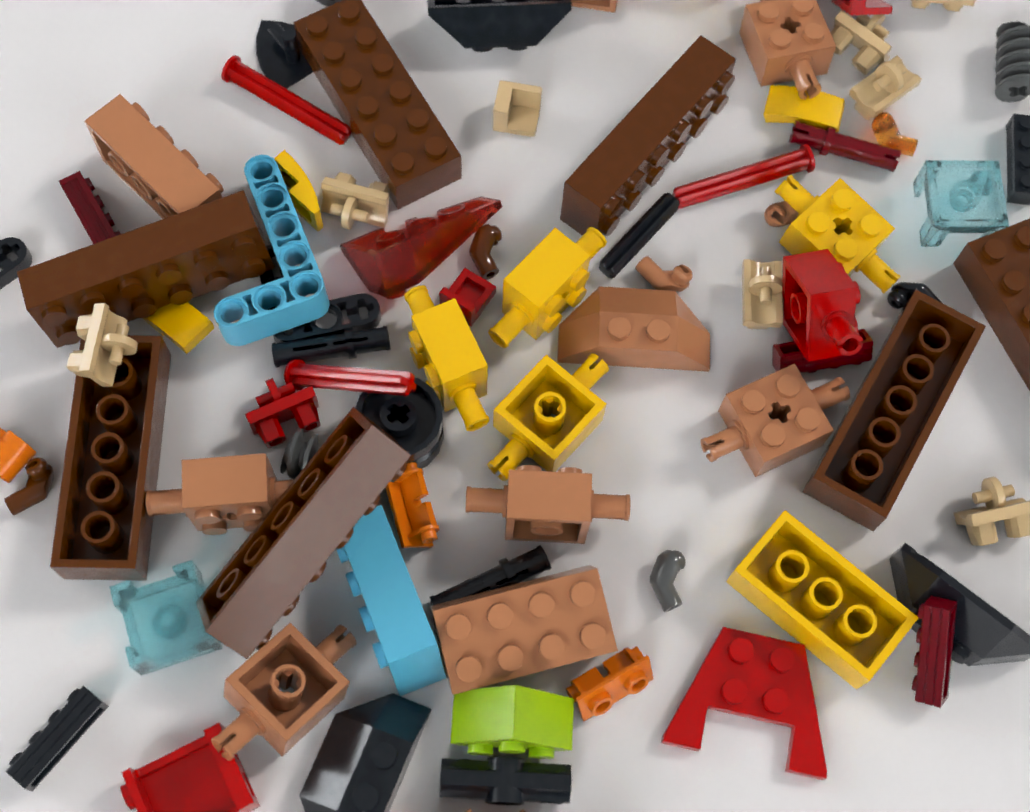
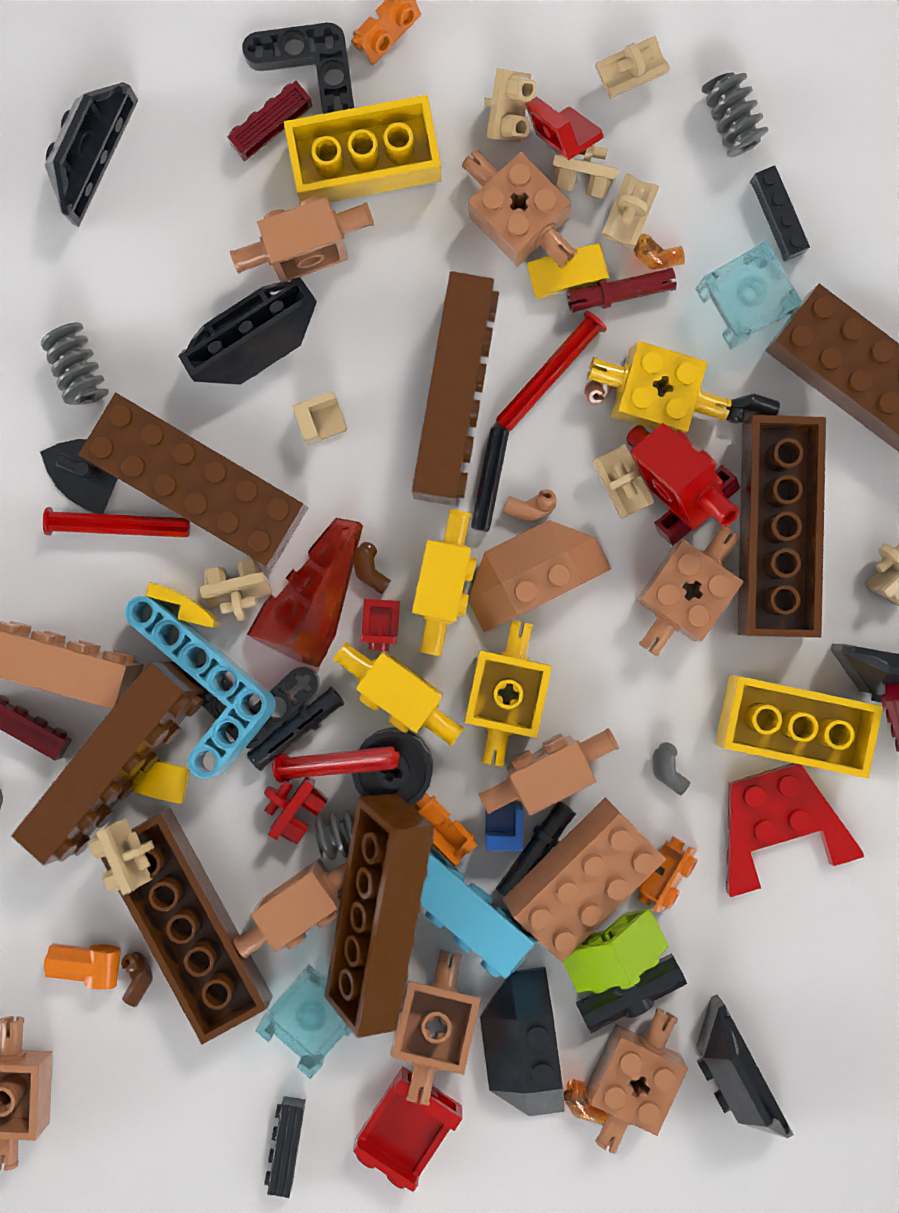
camera: 25 degrees left, 20 degrees up
(472, 543) = (505, 828): none -> blue panel

